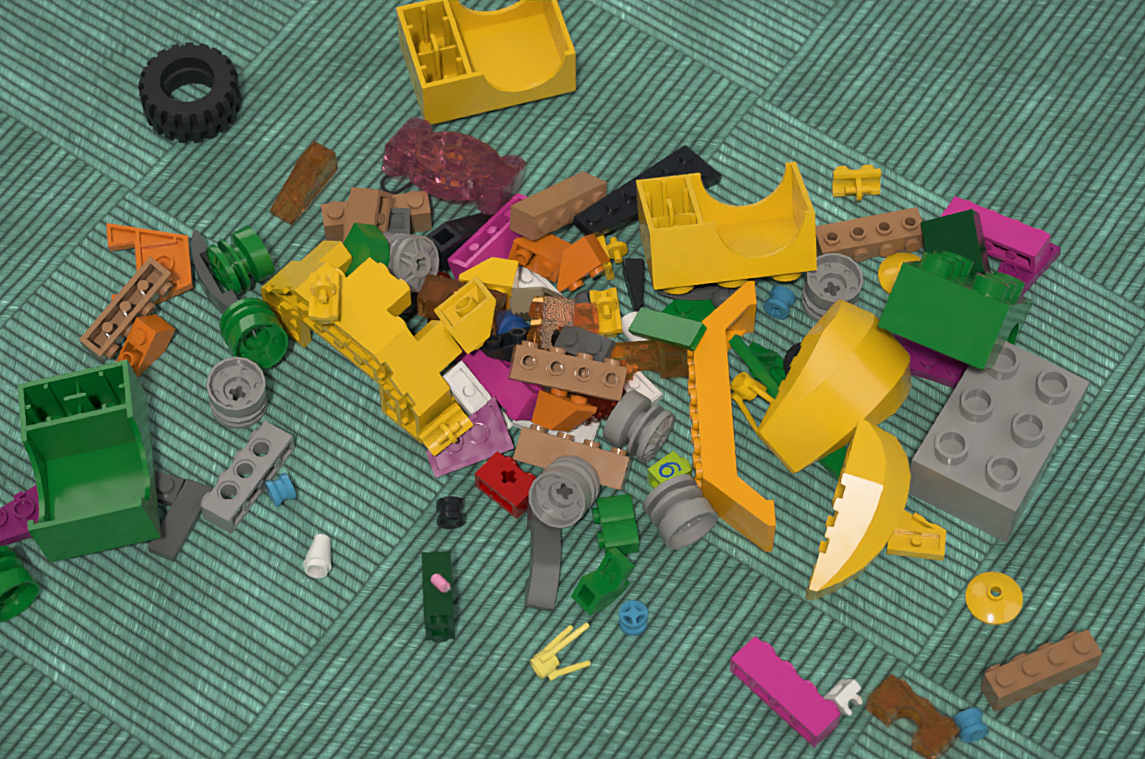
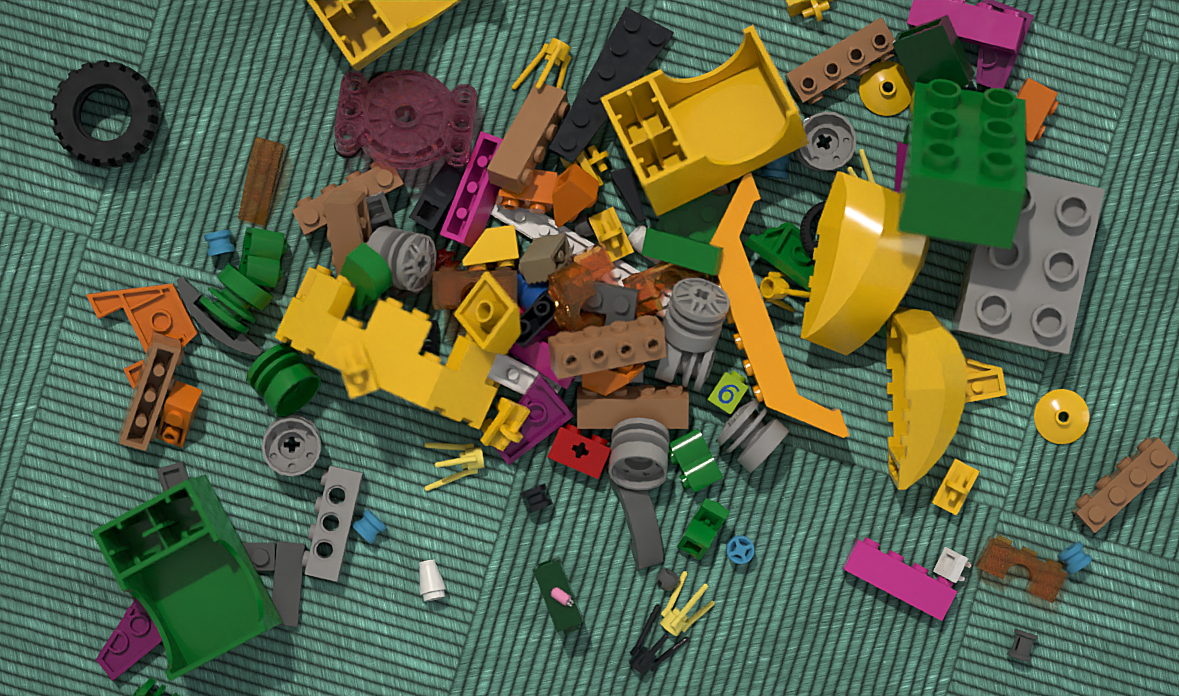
camera: 20 degrees left, 30 degrees up
(243, 216) = (219, 243): none -> dark azure wheel
(280, 235) = (262, 256): none -> green brick
(400, 461) = (470, 459): none -> light yellow plant
(501, 688) = (645, 659): none -> black plant
(550, 624) = (667, 579): none -> dark grey hinge
(607, 163) = (555, 53): none -> yellow plant
(661, 378) = (695, 314): none -> light grey wheel
(867, 621) = (955, 486): none -> yellow hips
(1043, 320) = (1039, 103): none -> orange slope

